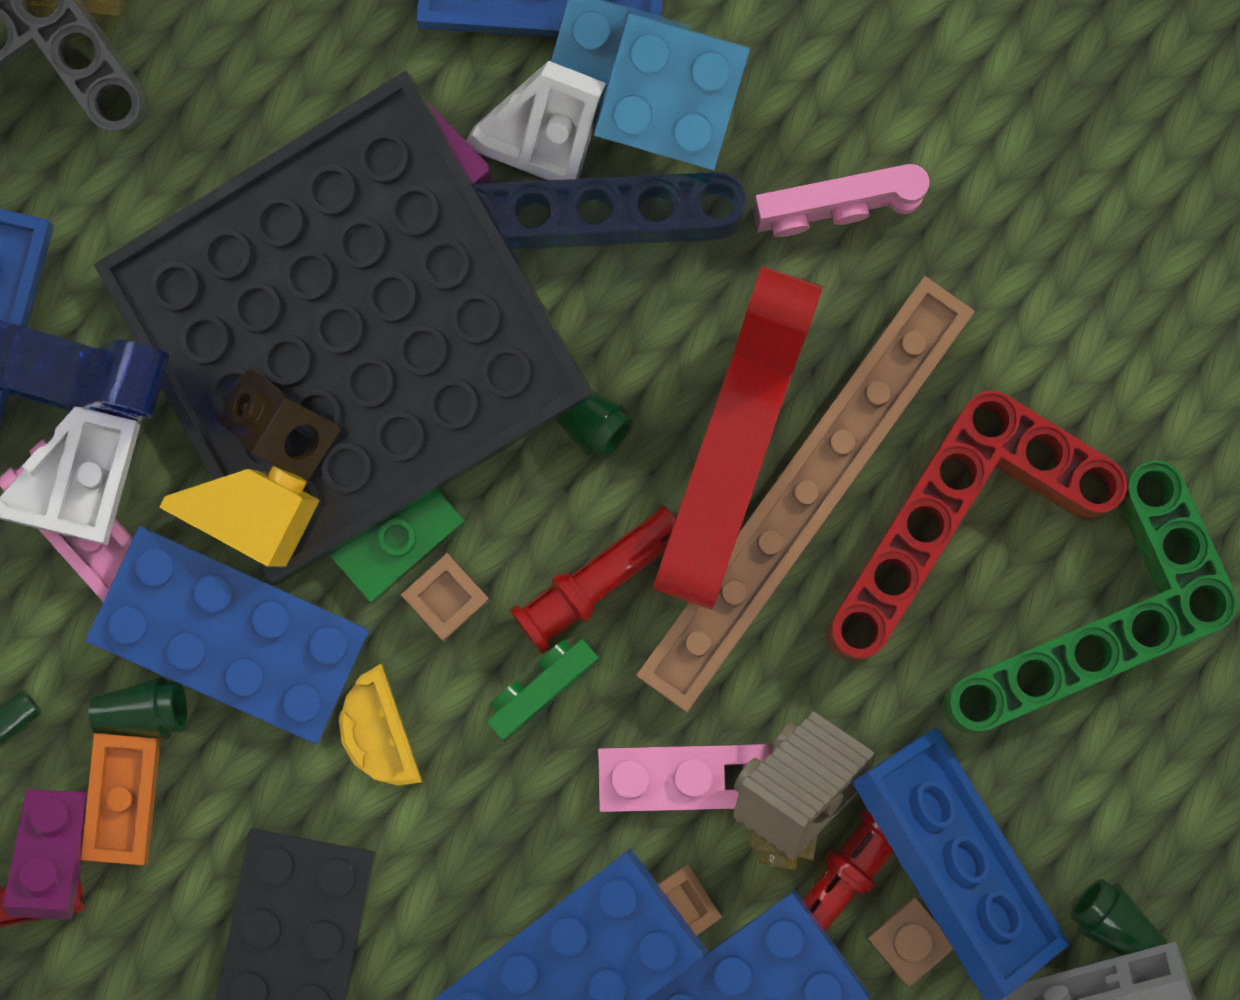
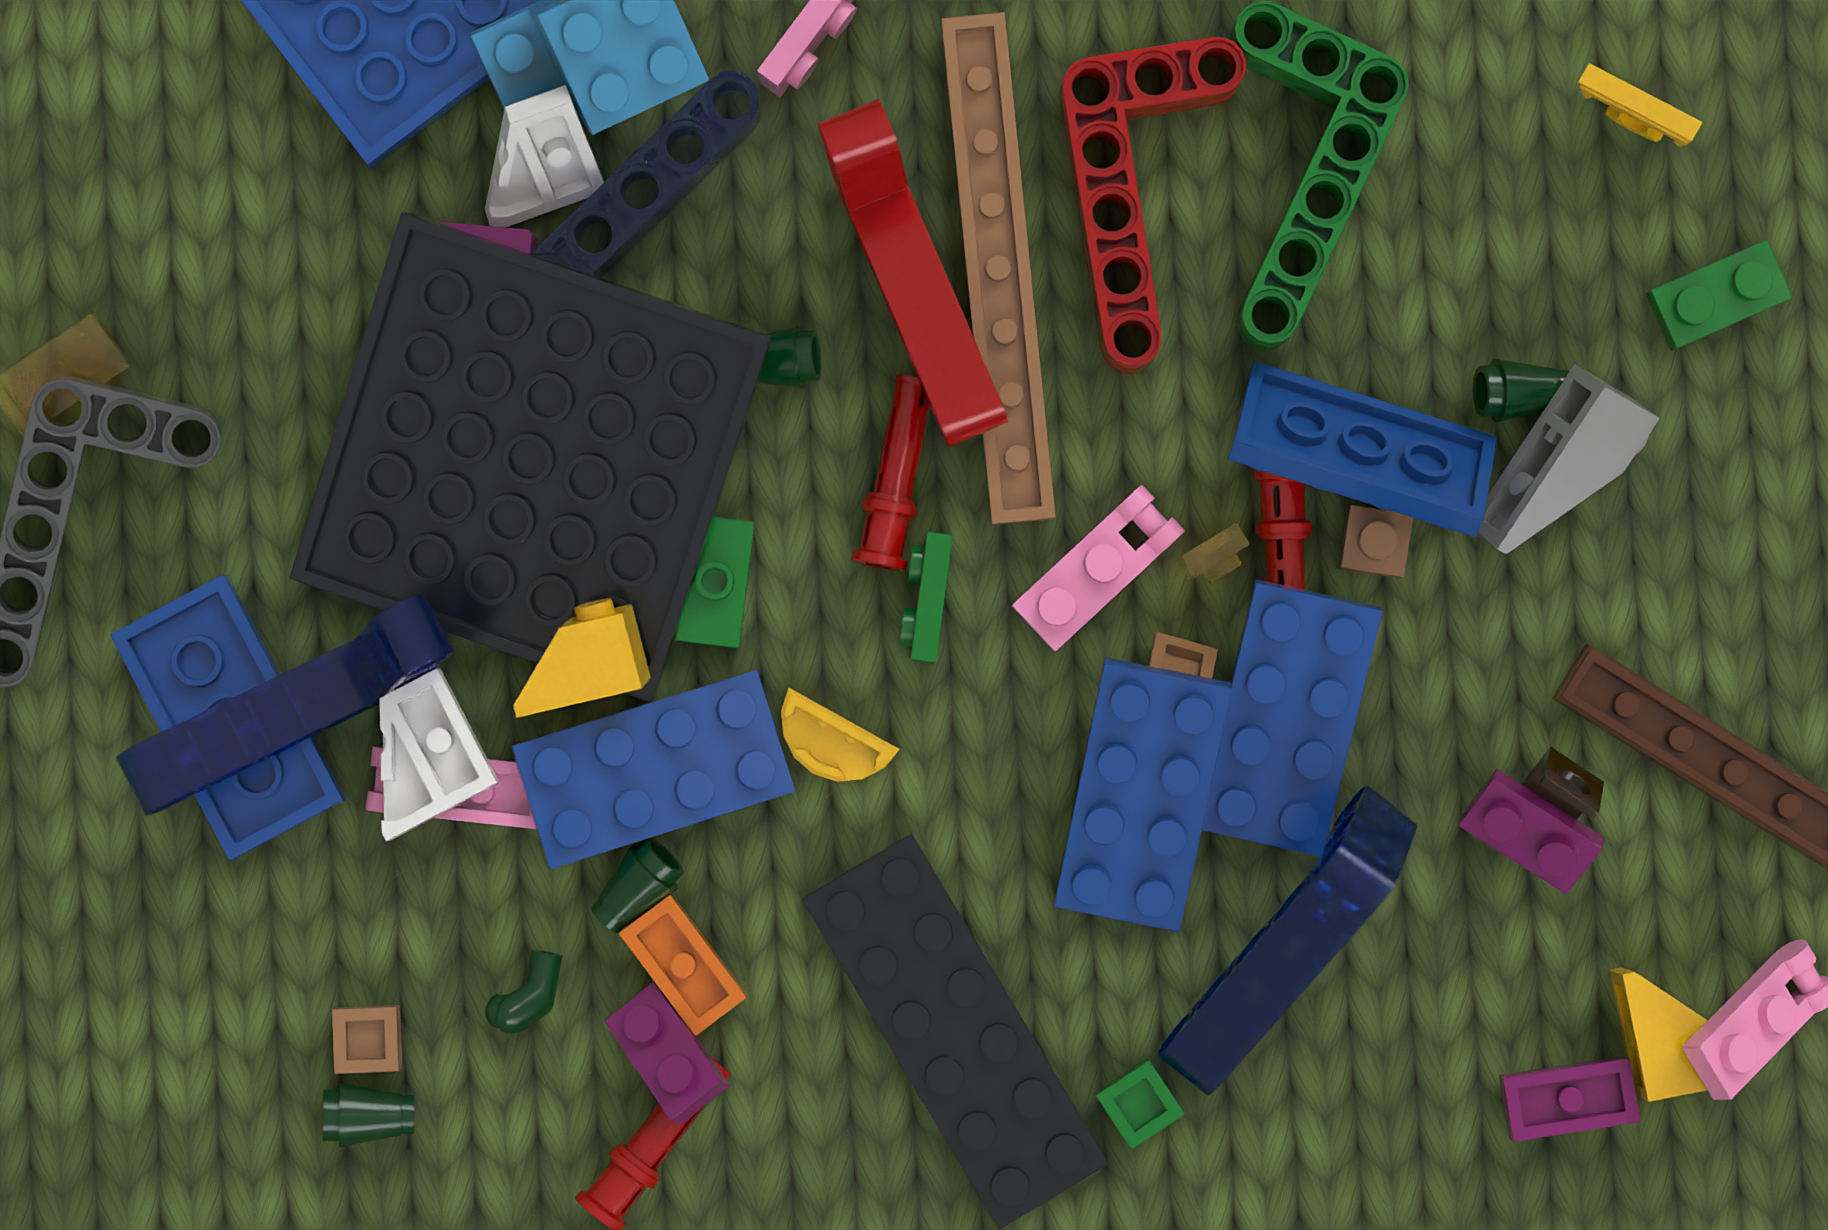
camera: 40 degrees left, 5 degrees up
(265, 416) = (535, 576): dark brown bracket -> none
(445, 597) = (792, 593): medium nougat plate -> none
(800, 783) = (1190, 494): dark tan brick -> none

